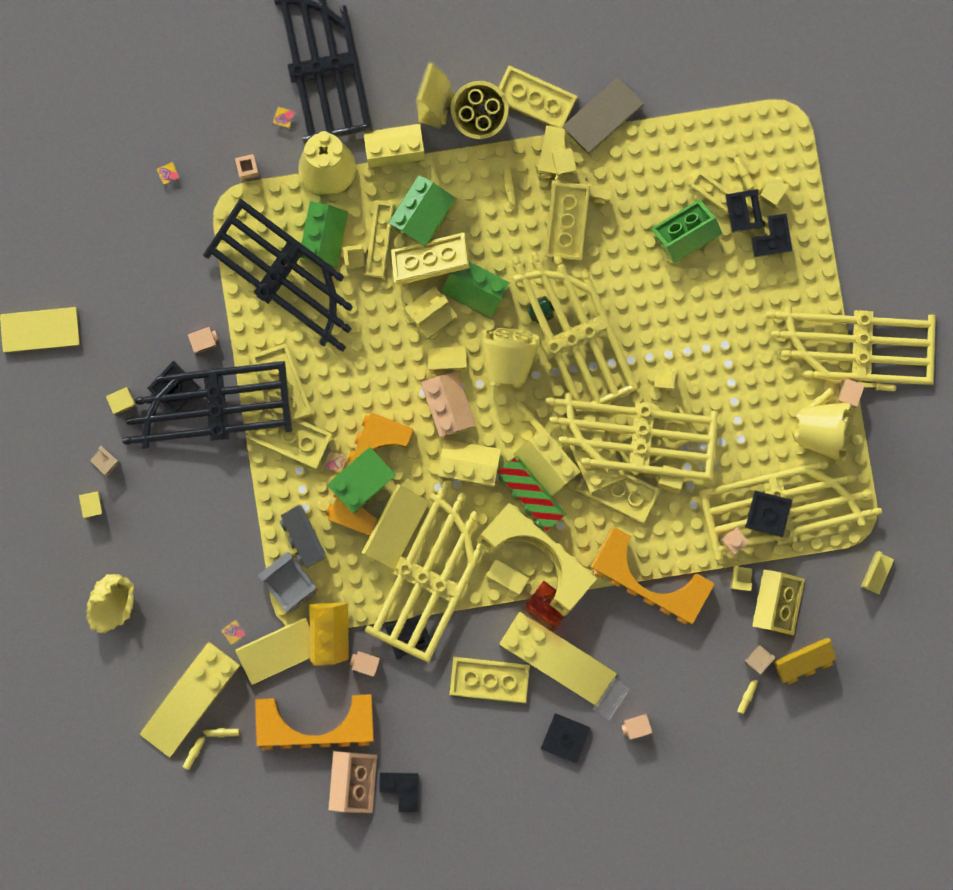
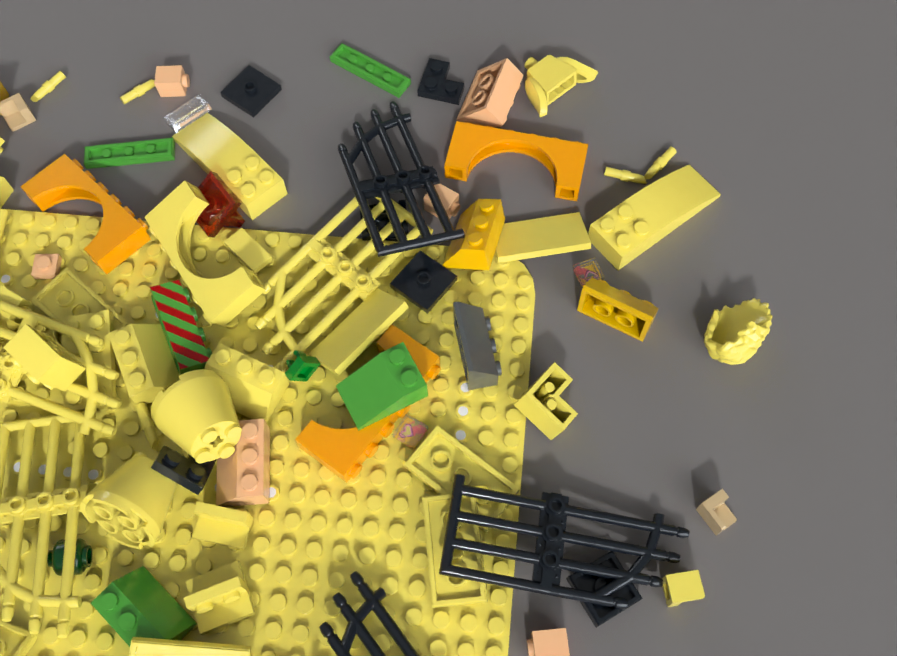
camera: 160 degrees left, 20 degrees down
(90, 504) = (745, 459): light yellow panel -> none
(203, 602) = (617, 308): none -> yellow slope
(245, 509) = (544, 405): none -> light yellow brick
(288, 582) = (509, 303): light grey panel -> none
(304, 812) = (553, 78): none -> light yellow torso
(359, 585) = (423, 281): none -> black plate
(404, 662) = (401, 181): none -> black piece
(428, 486) = (302, 367): none -> green tile
(467, 788) = (370, 70): none -> bright green tile
(479, 385) = (182, 469): none -> black plate
(481, 421) = (198, 415): none -> light yellow cone
(489, 680) = (307, 160): light yellow tile -> none
(607, 431) = (43, 358): none -> light yellow brick
(646, 647) = (129, 153): none -> bright green tile
(663, 521) = (46, 266): none -> light nougat plate
(665, 712) = (137, 91): none -> light yellow piece

